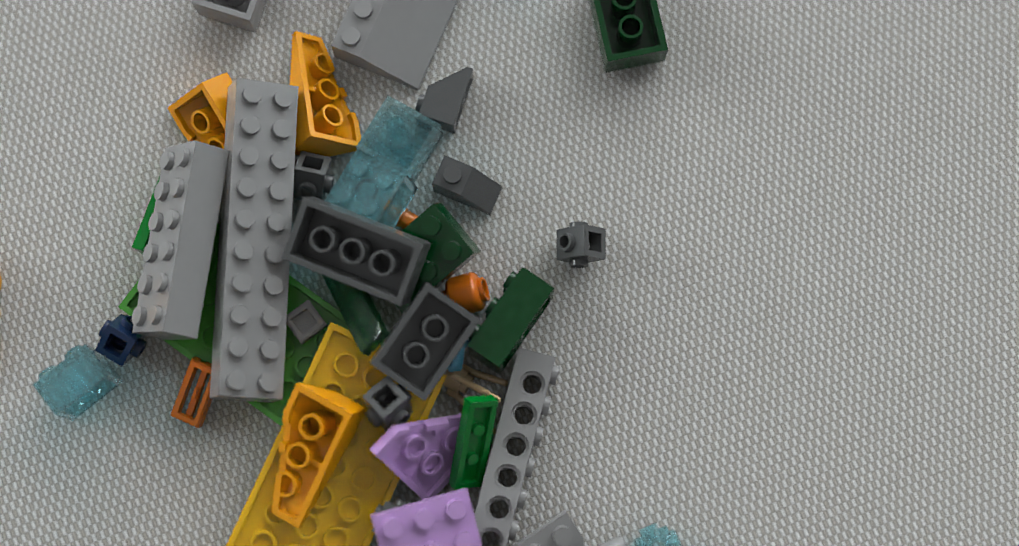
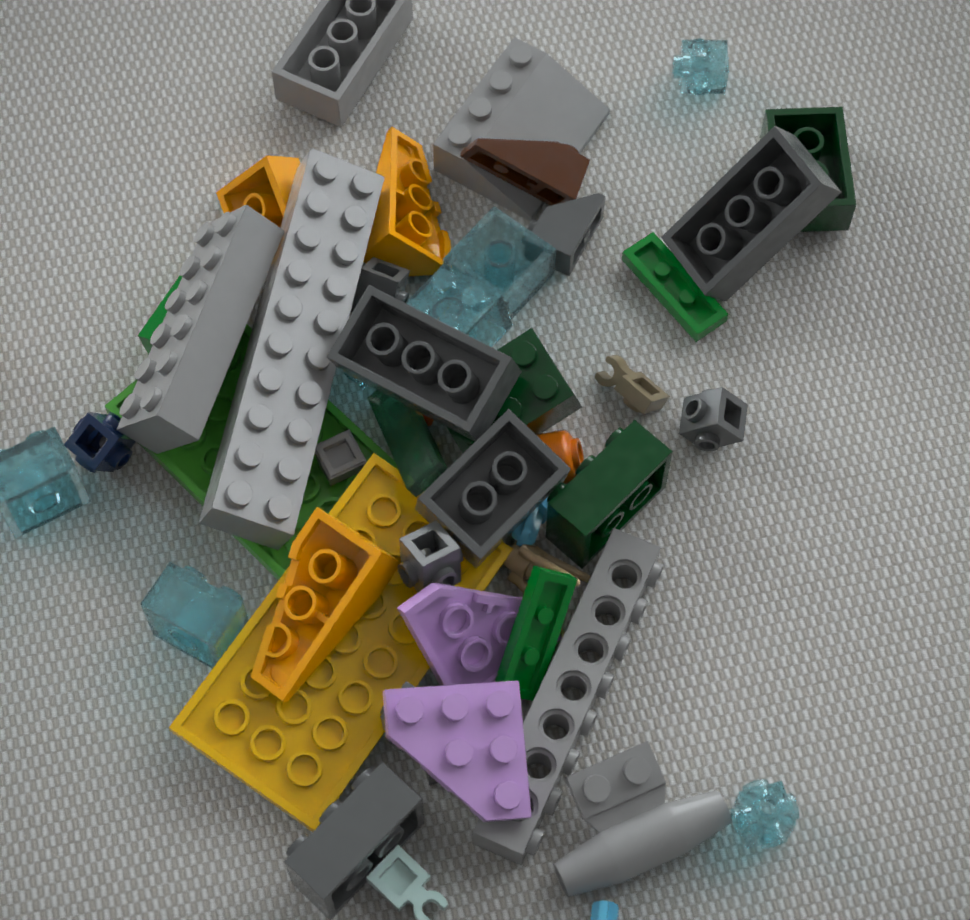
camera: 10 degrees right, 15 degrees down
(199, 419) = (167, 518): orange tile -> none
(221, 470) = (194, 613): none -> clear light blue brick
(421, 52) = (539, 168): none -> reddish brown slope
(466, 185) = (574, 330): dark grey slope -> none
(518, 225) = (636, 388): none -> dark tan plate
(536, 133) = (674, 287): none -> green plate
(587, 73) = (750, 214): none -> dark grey brick

